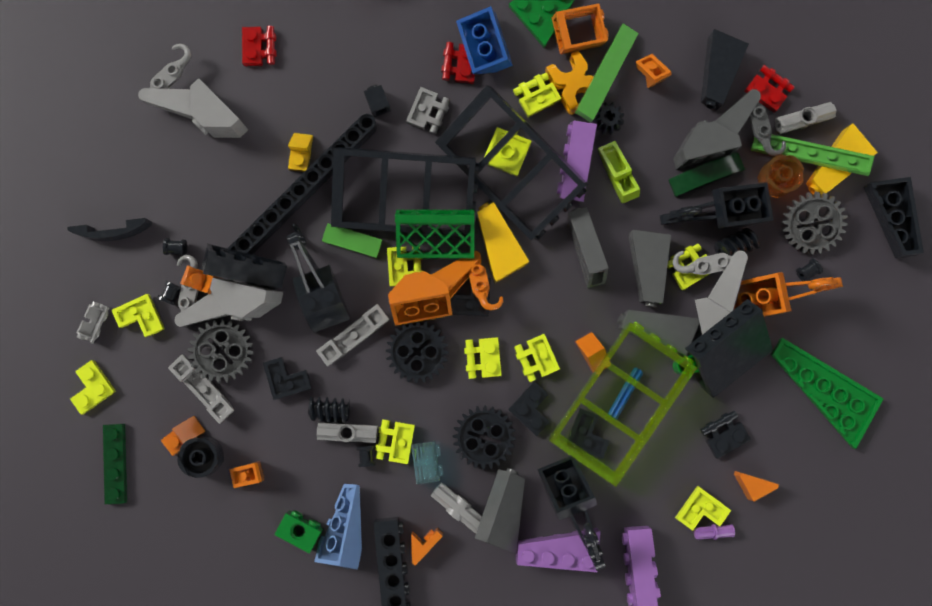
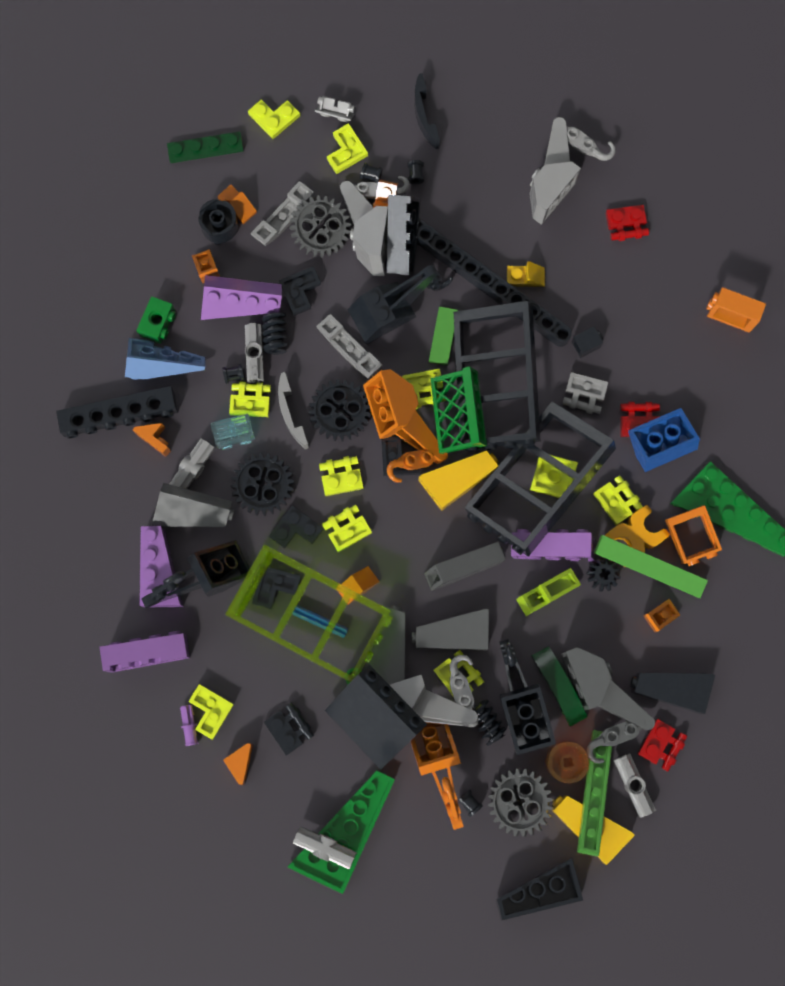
camera: 90 degrees right, 5 degrees down
(287, 443) = (238, 297): none -> medium lavender wedge
(389, 405) = (283, 391): none -> light grey slope
(843, 411) = (324, 847): none -> light grey piece

